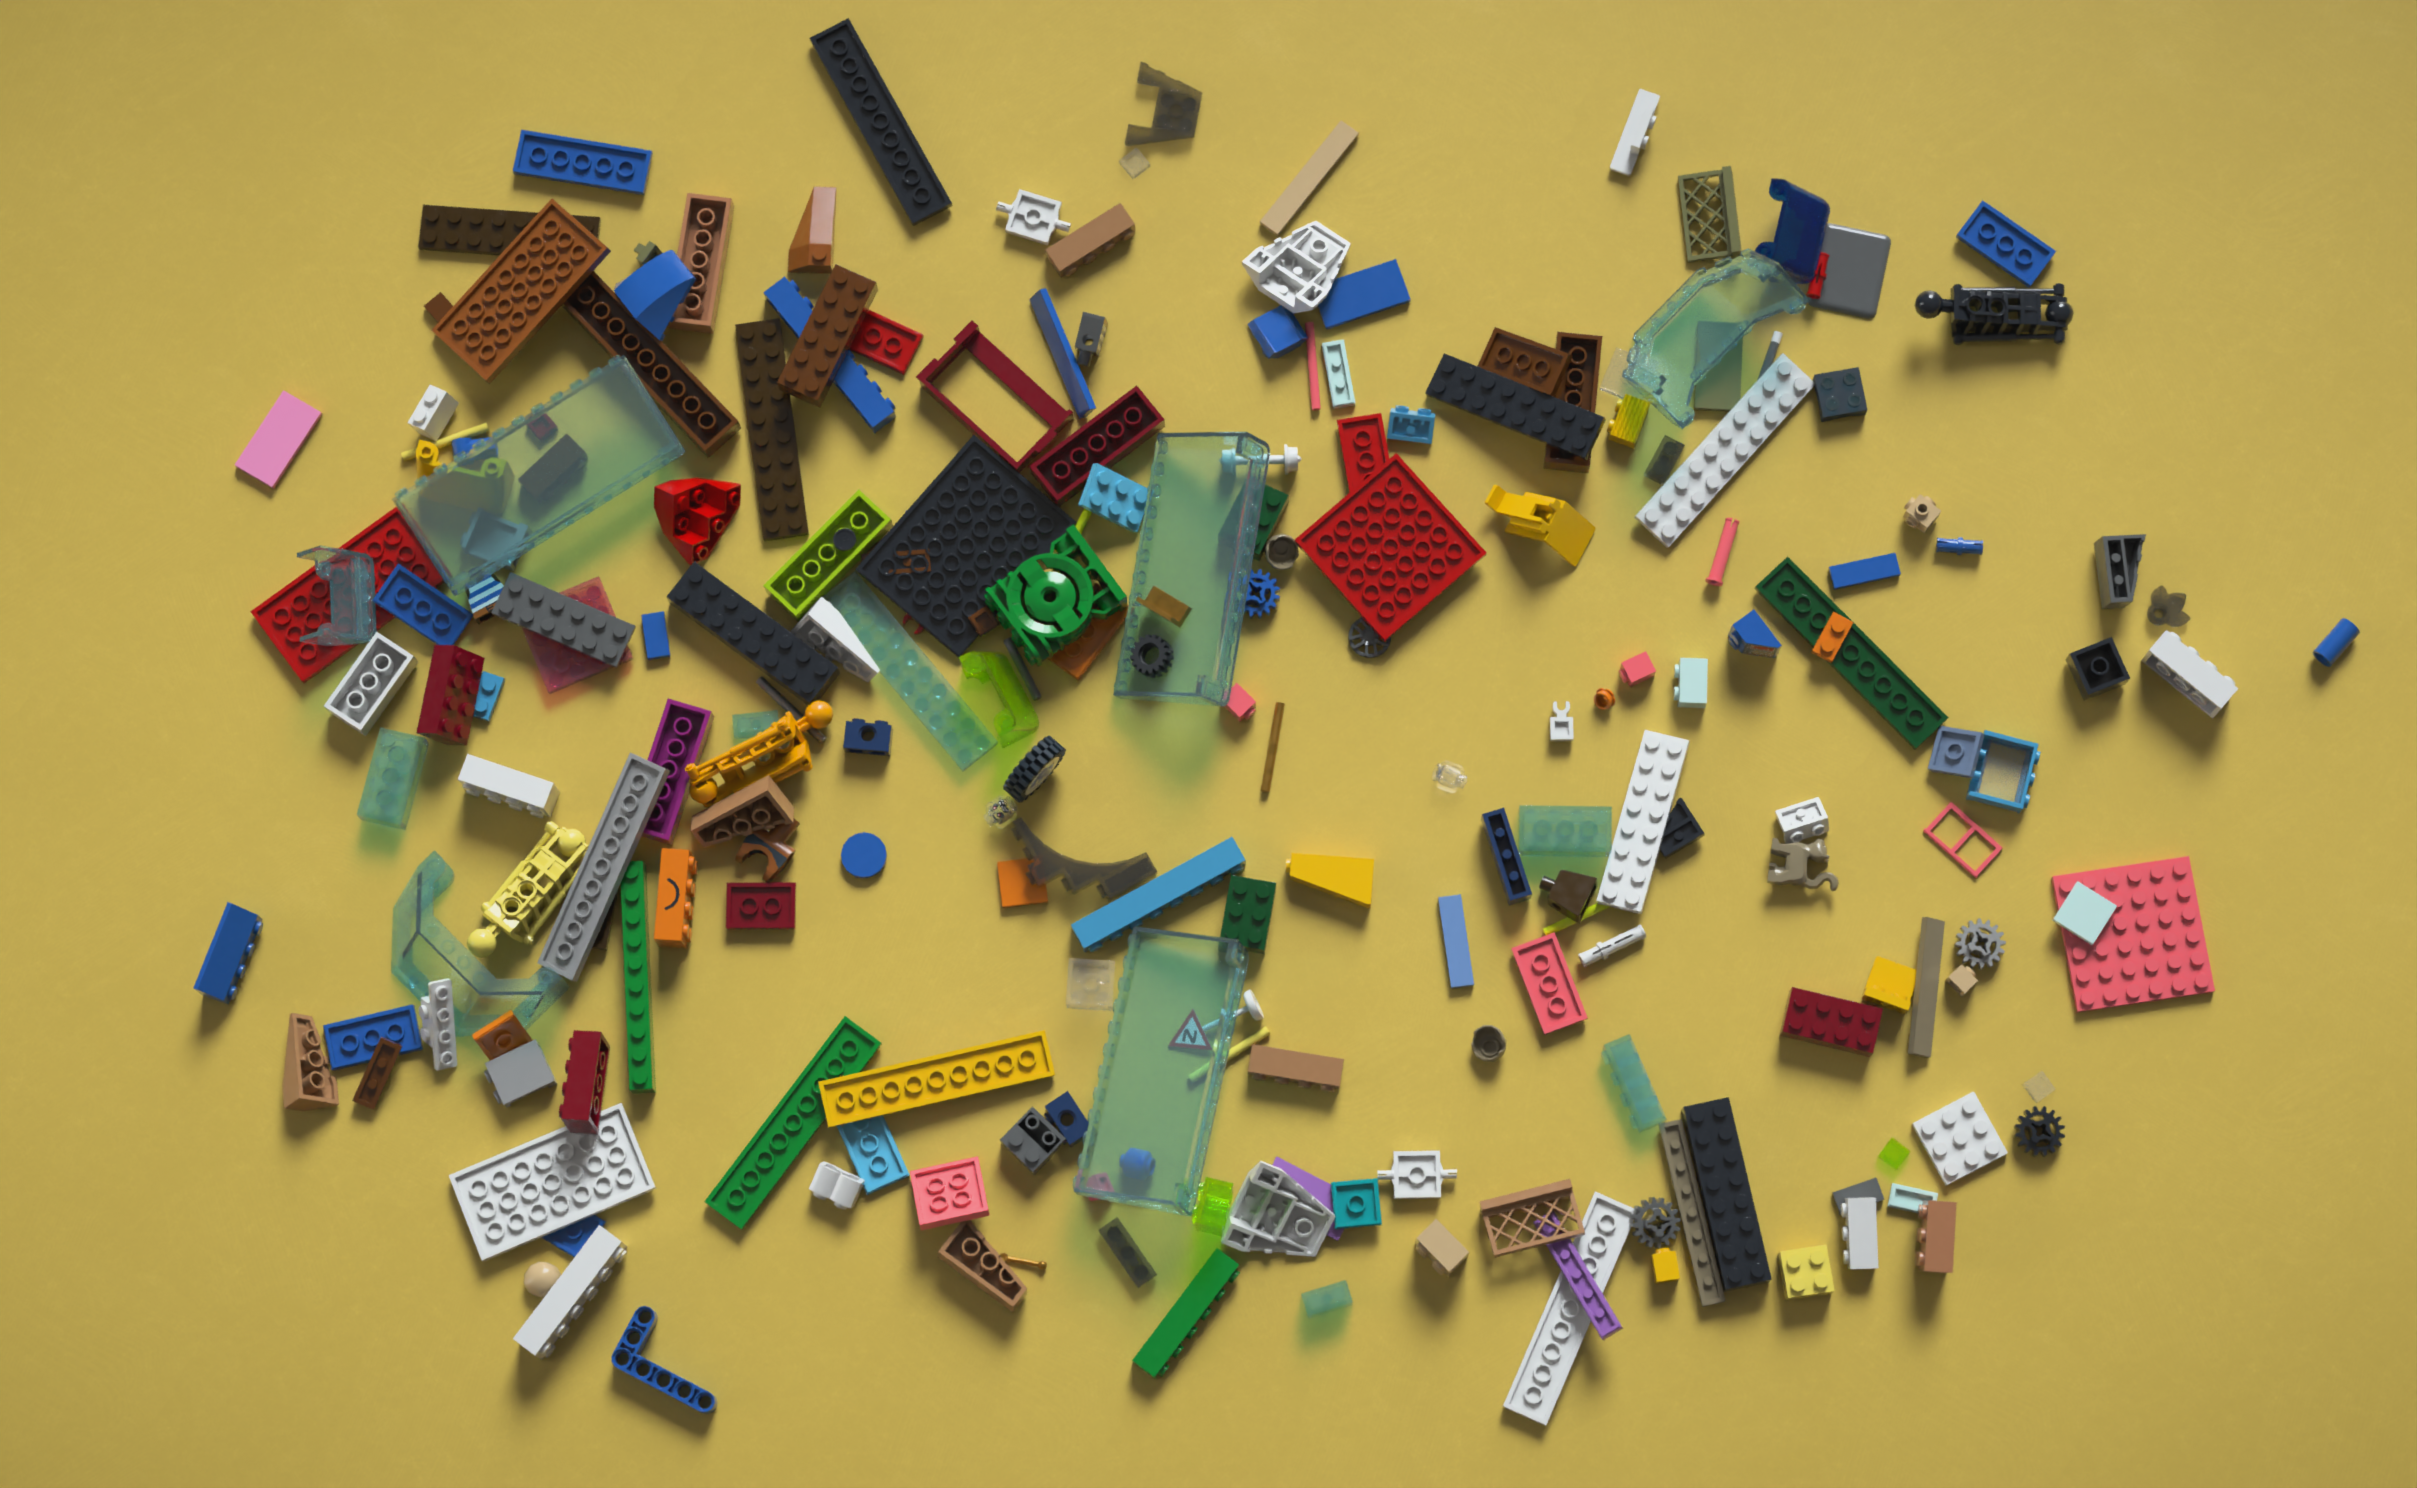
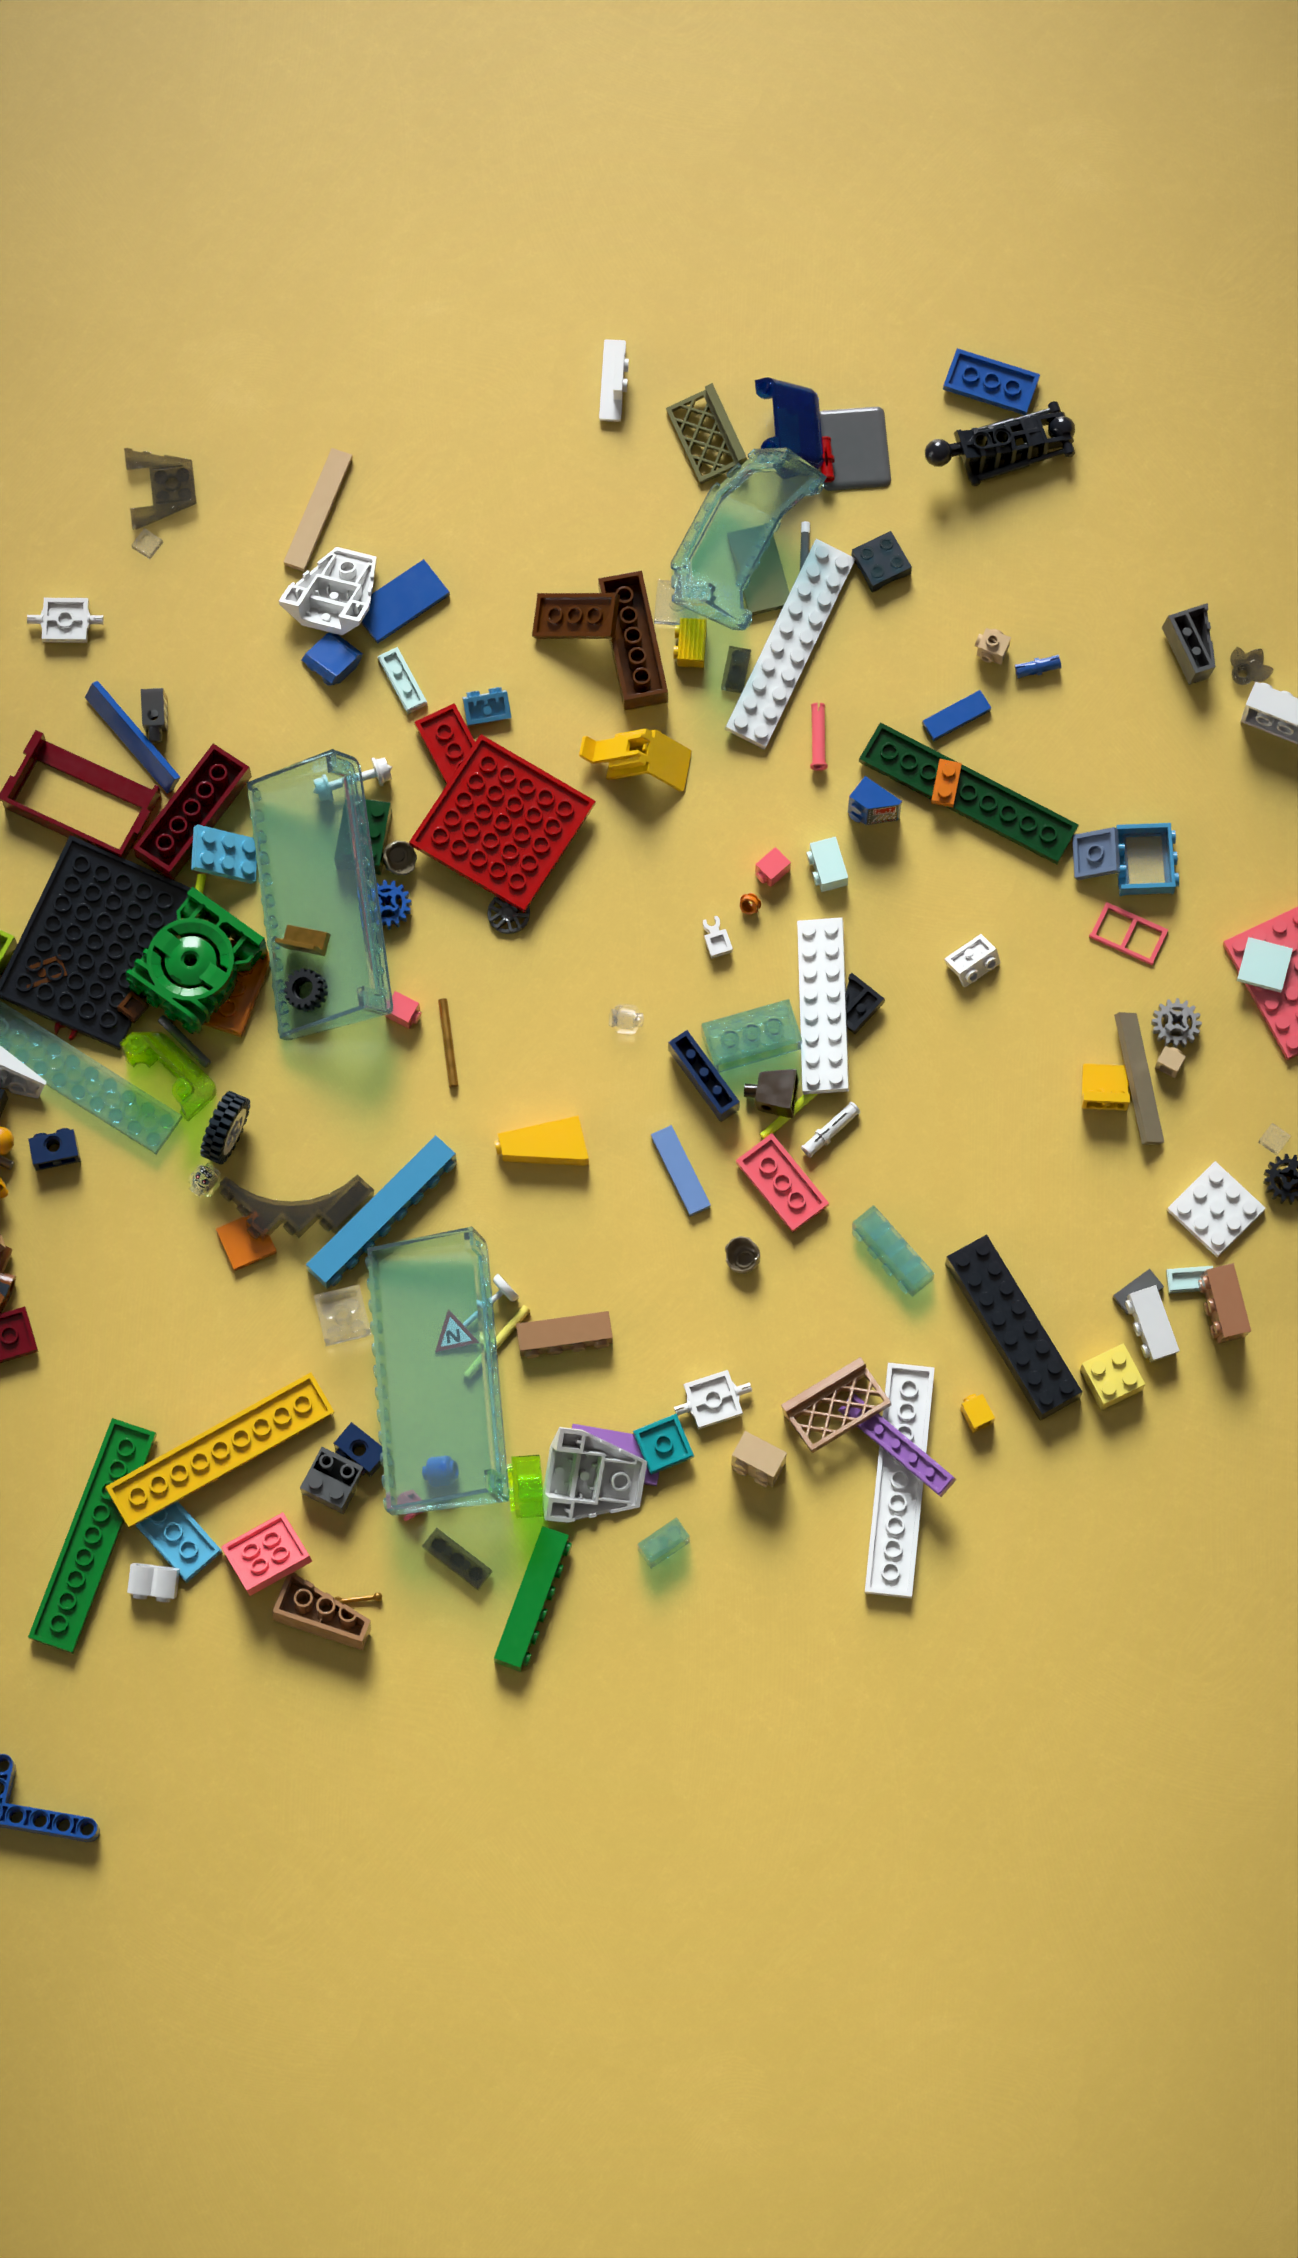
camera: 20 degrees left, 5 degrees down
(864, 855) = (84, 1261): blue tile -> none
(1090, 240) = (127, 625): medium nougat brick -> none
(1249, 912) = (474, 1200): dark green brick -> none
(1312, 366) = (375, 680): coral bar -> none
(1515, 406) = (580, 658): black plate -> none
(1652, 1213) = (958, 1383): dark grey gear -> none
(1691, 1213) = (986, 1355): dark tan plate -> none
(1796, 864) = (981, 1007): dark tan animal -> none
(1831, 1022) = (1060, 1137): dark red brick -> none
(1894, 1153) = (1159, 1242): clear neon green tile -> none
(2097, 668) = (1203, 738): black brick -> none

